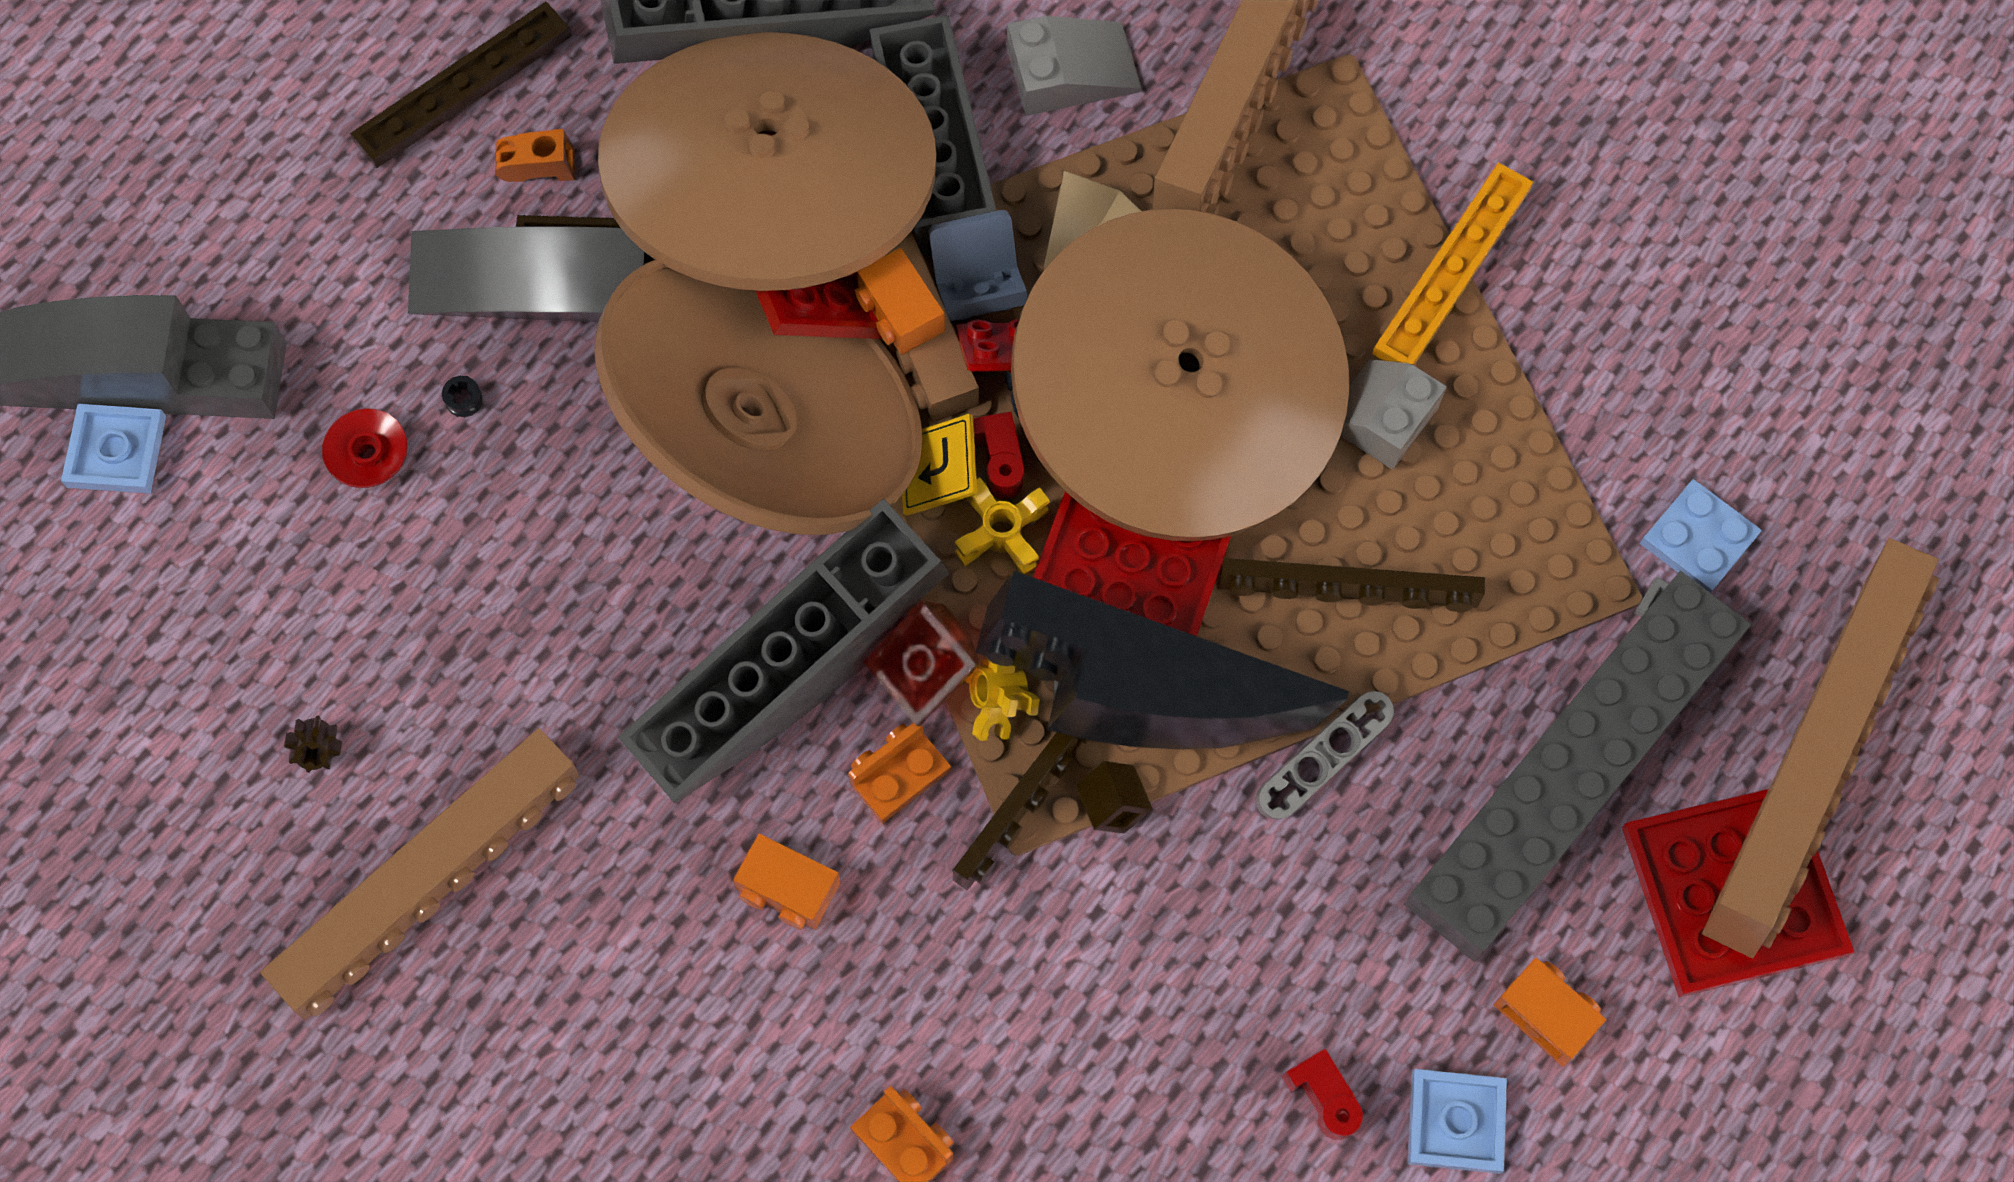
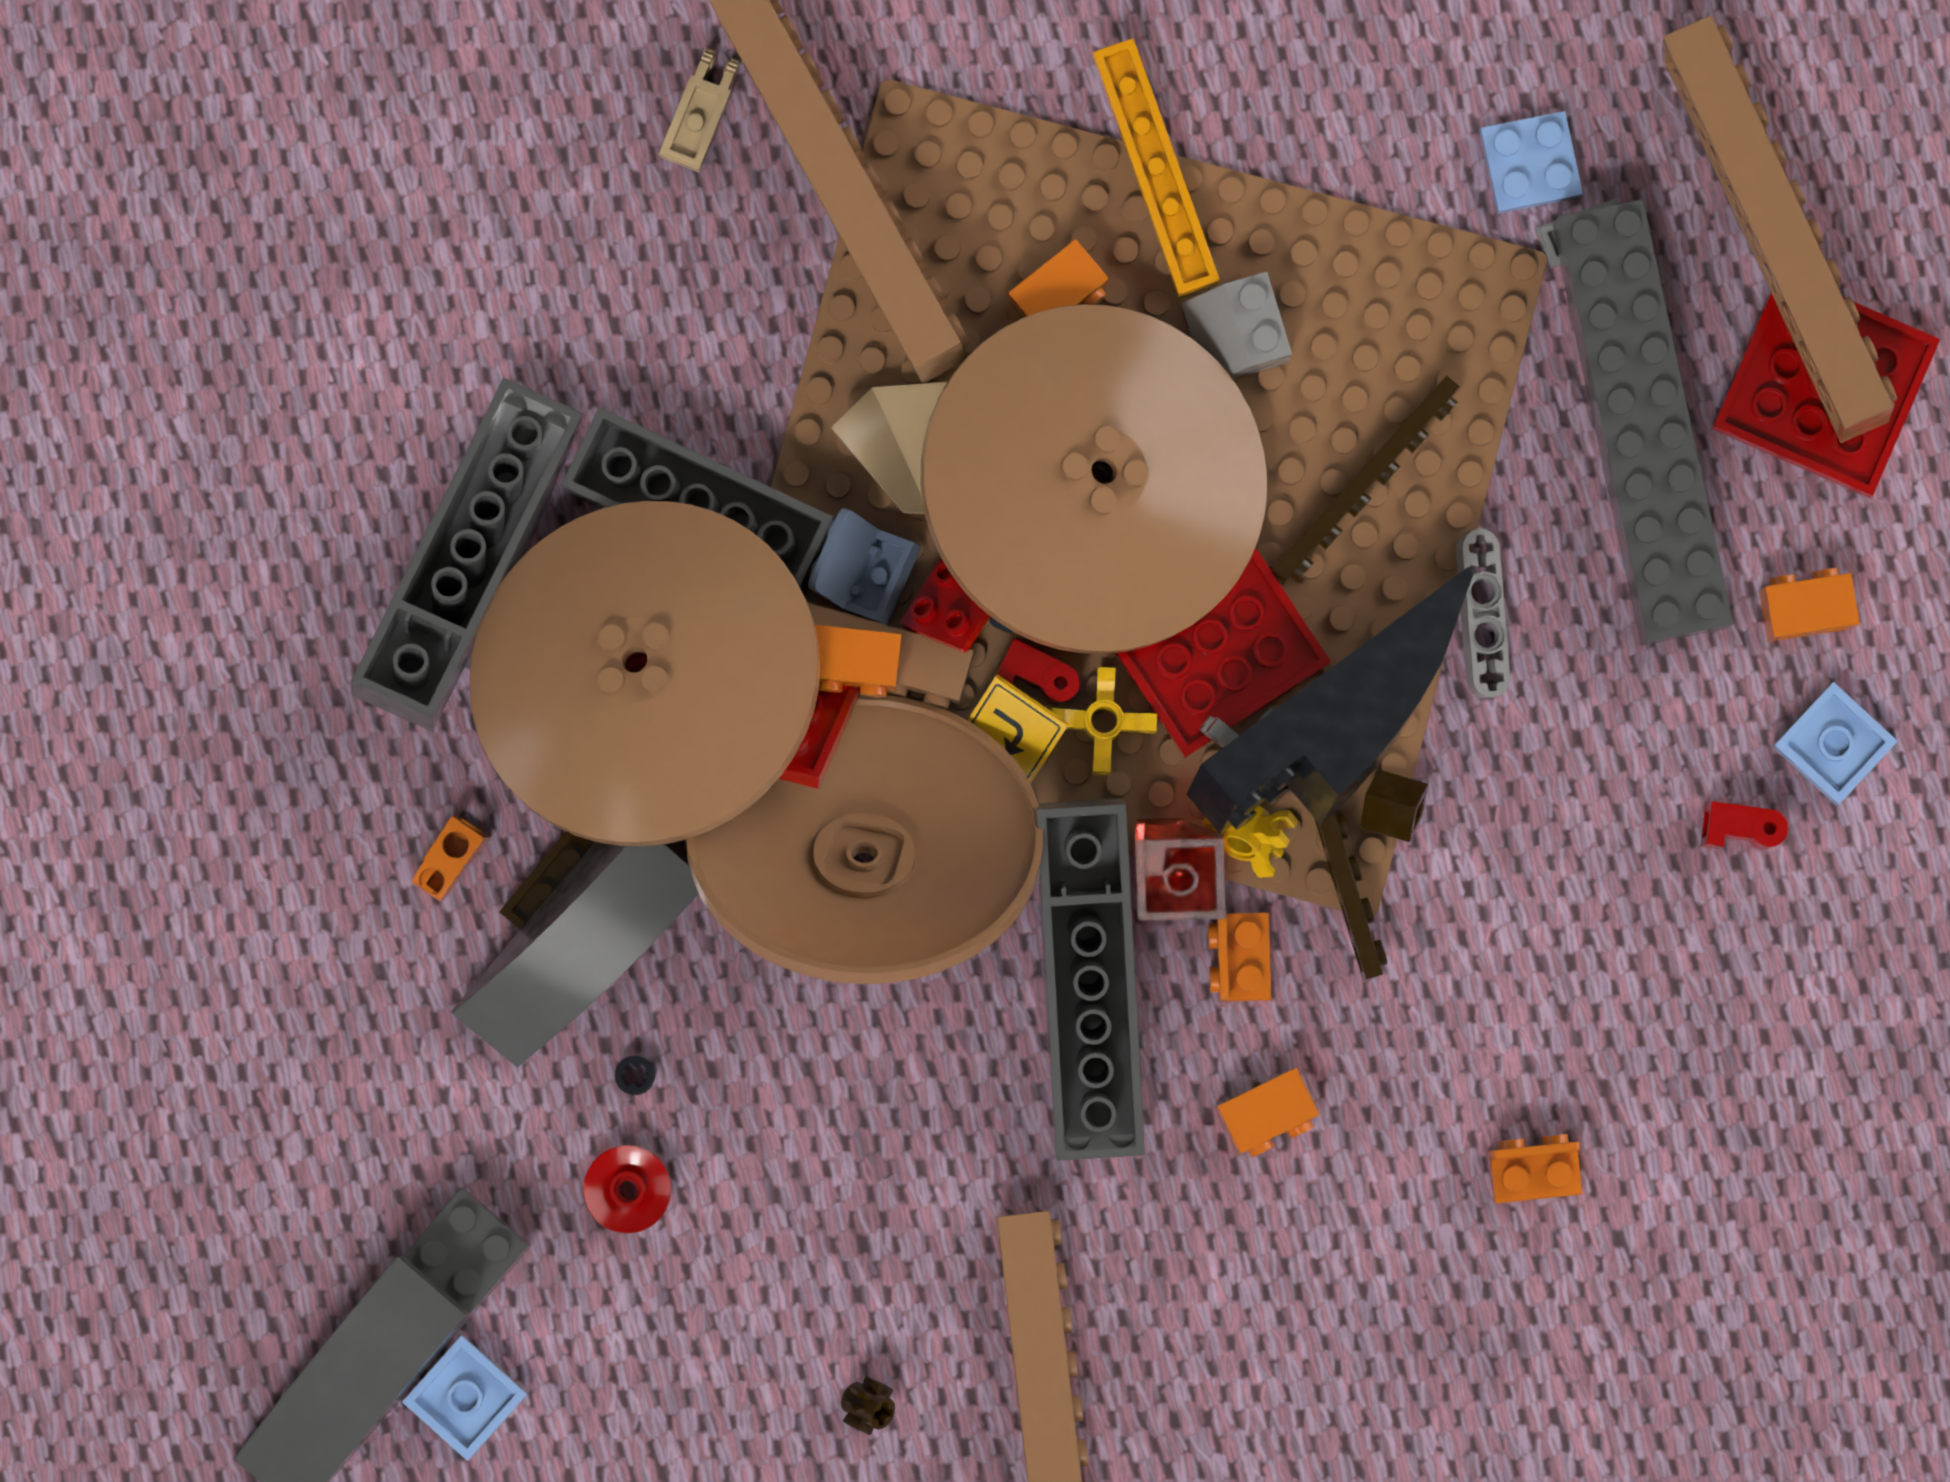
camera: 55 degrees left, 15 degrees up
(461, 84) = (324, 869): dark brown plate -> none
(1069, 62) = (710, 327): light grey slope -> none
(1319, 254) = (1063, 280): none -> orange brick

